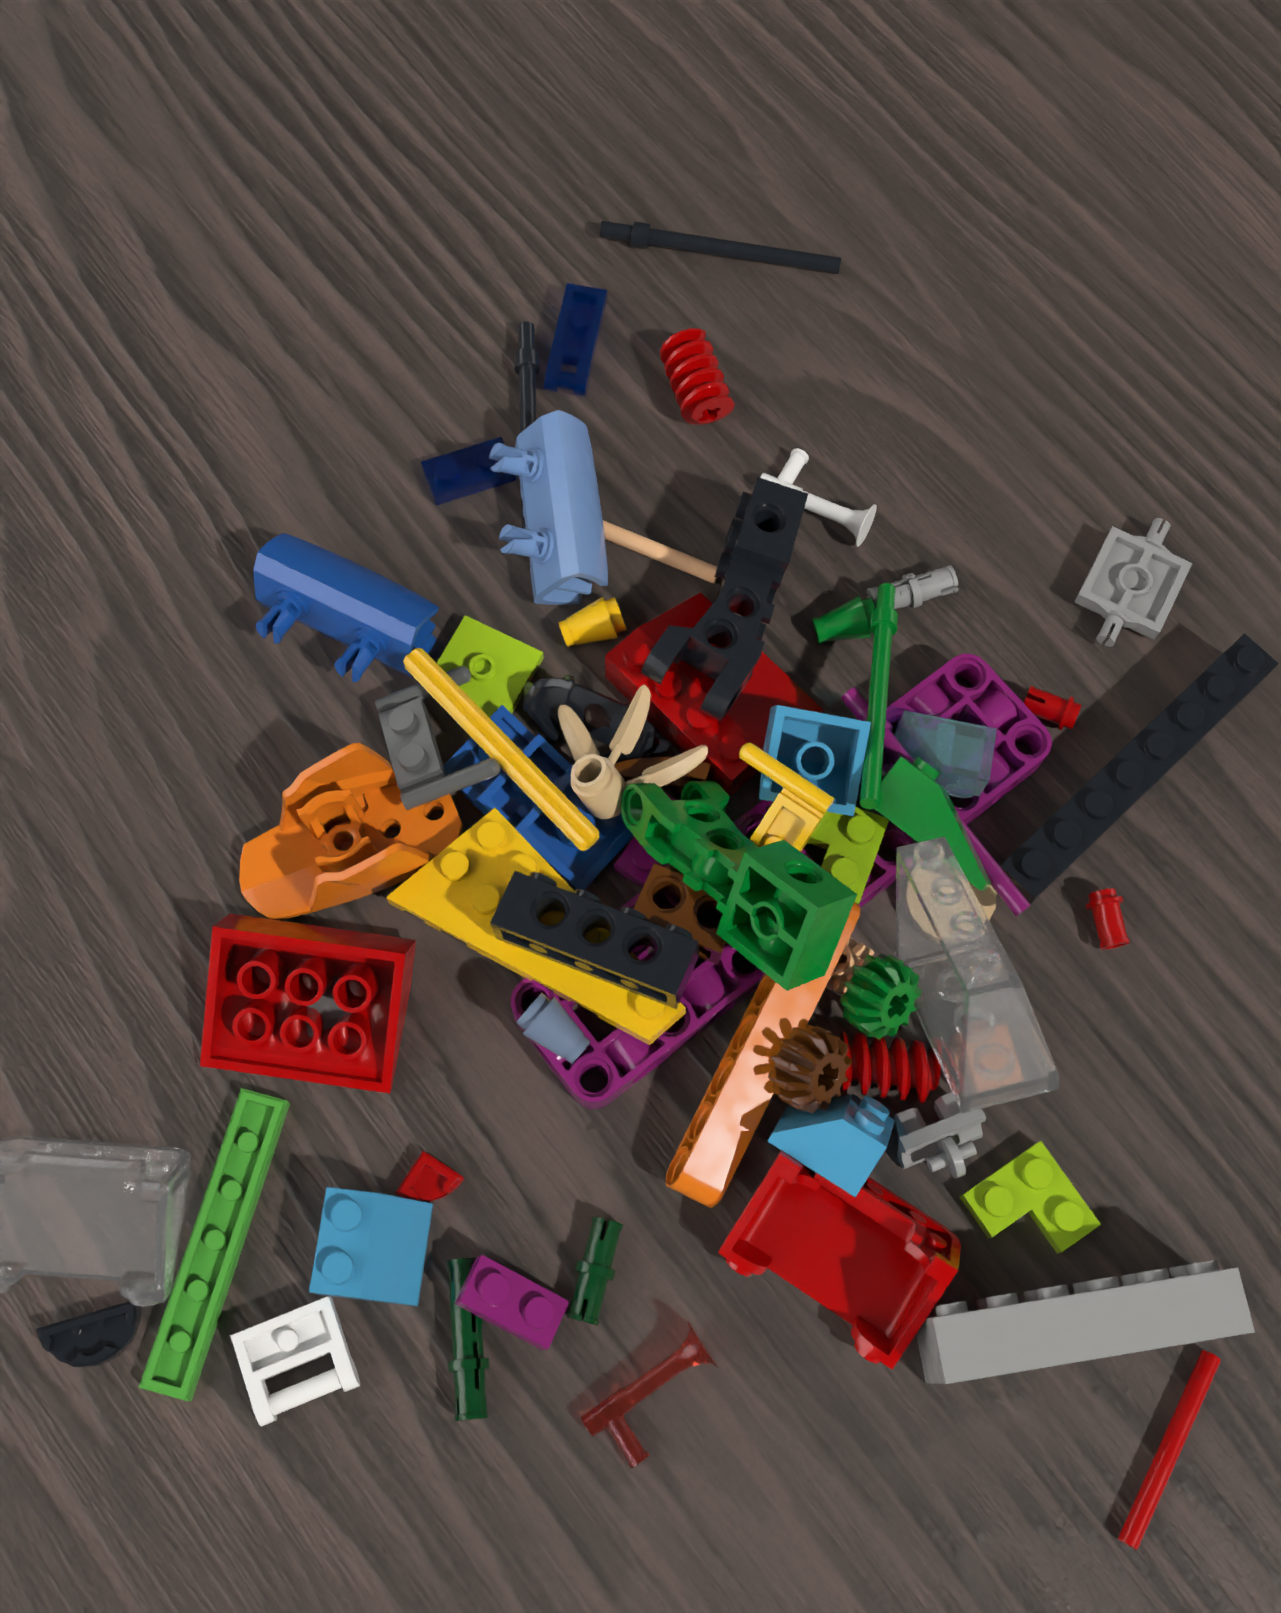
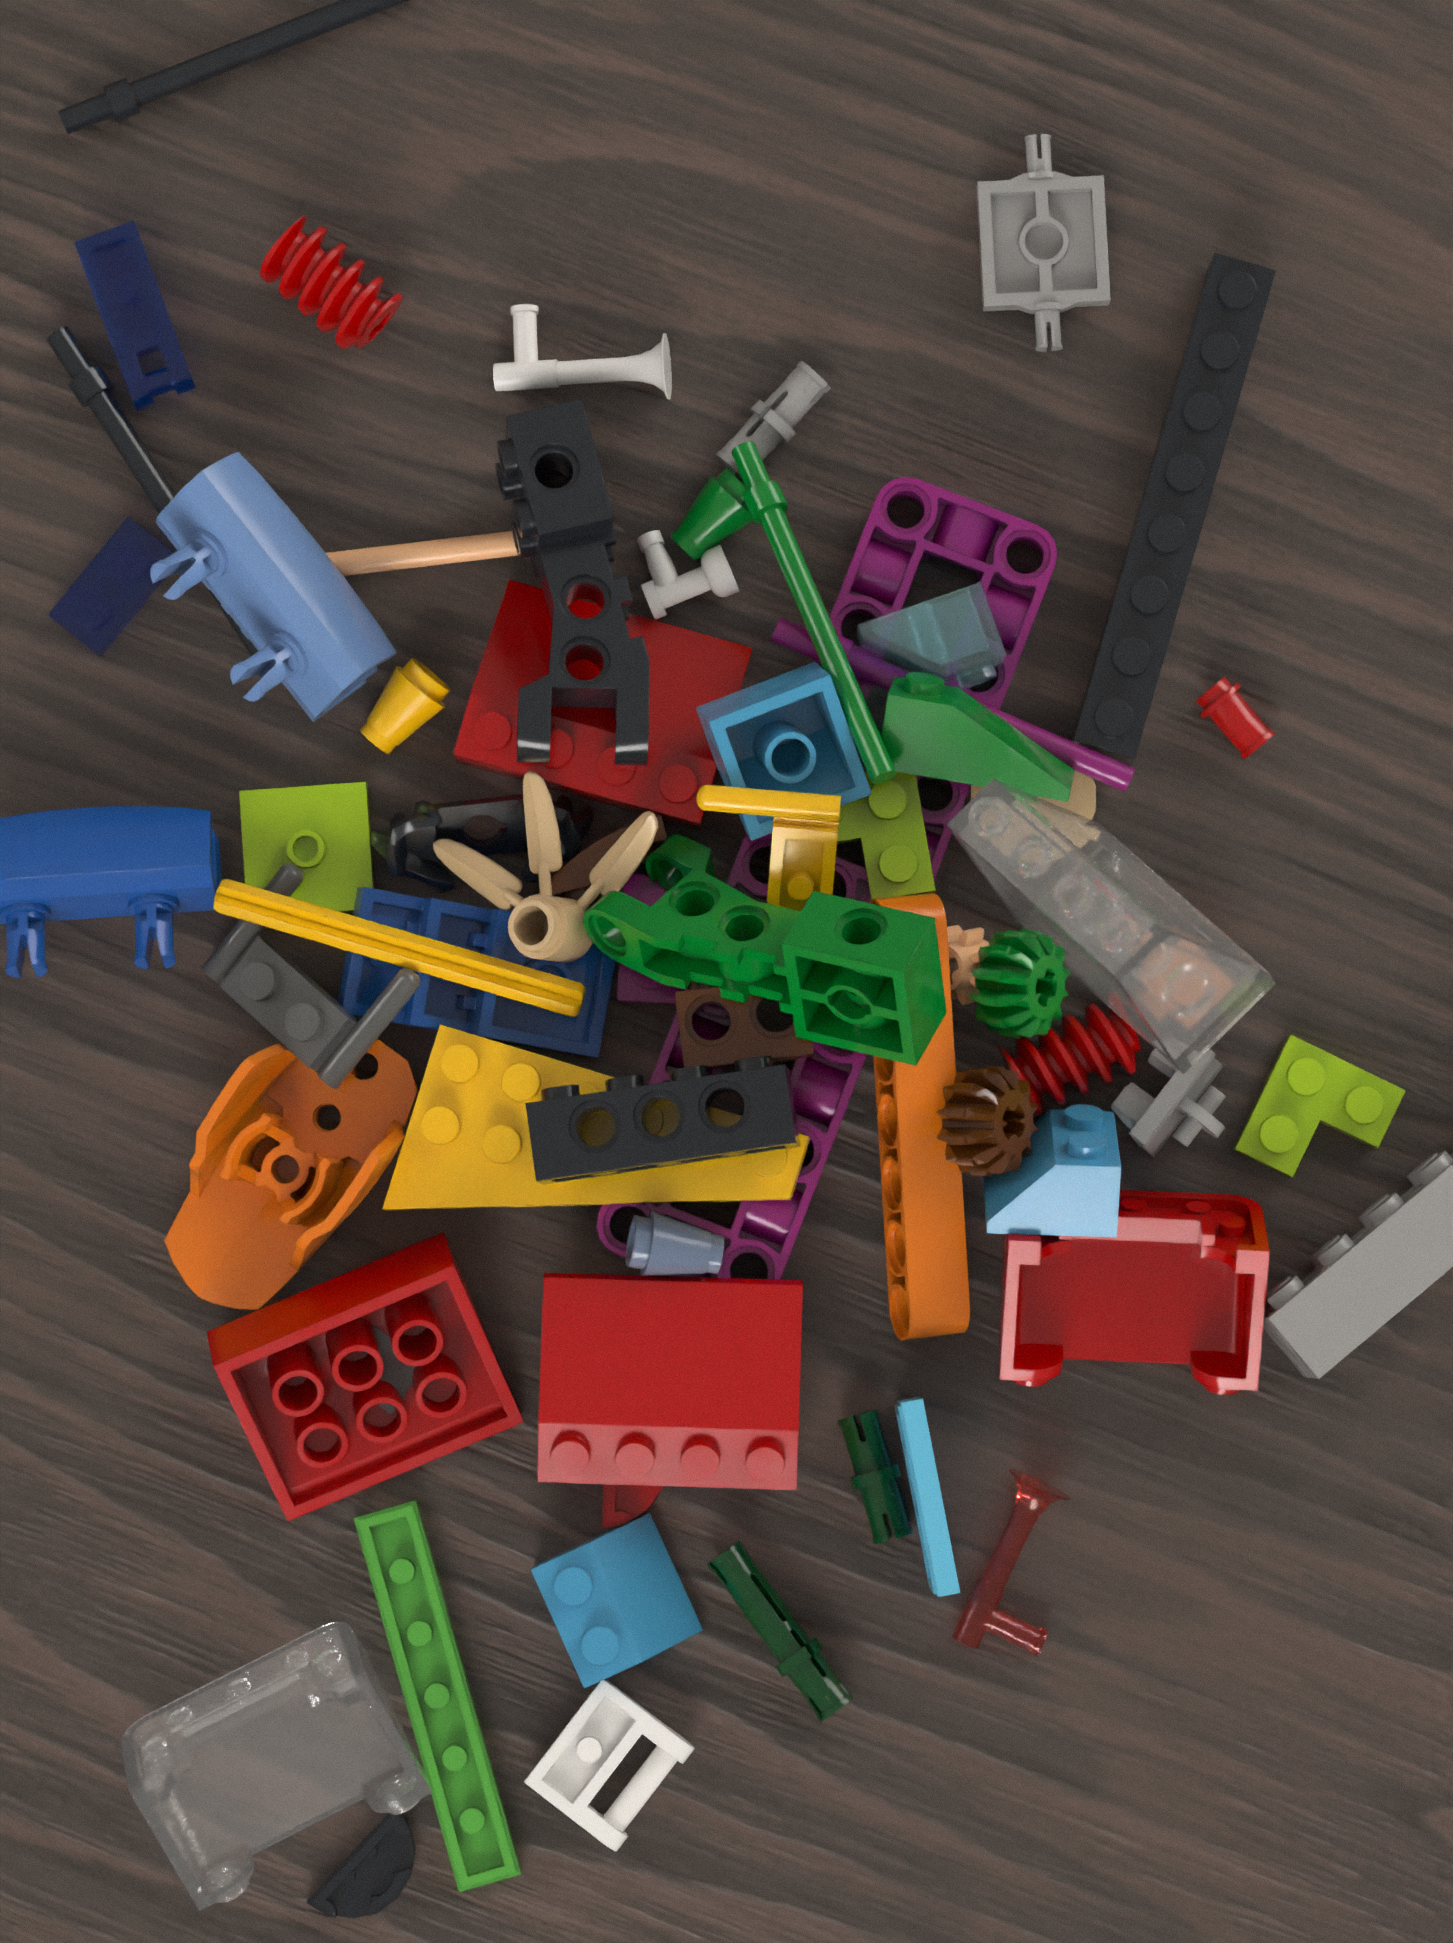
camera: 25 degrees left, 15 degrees up
(497, 1119) = (670, 1381): none -> red slope
(512, 1302) = (806, 1565): magenta plate -> none
(621, 1301) = (926, 1496): none -> medium azure tile
(794, 648) = (669, 588): none -> white piece
(1052, 707) = (1033, 478): red pin -> none

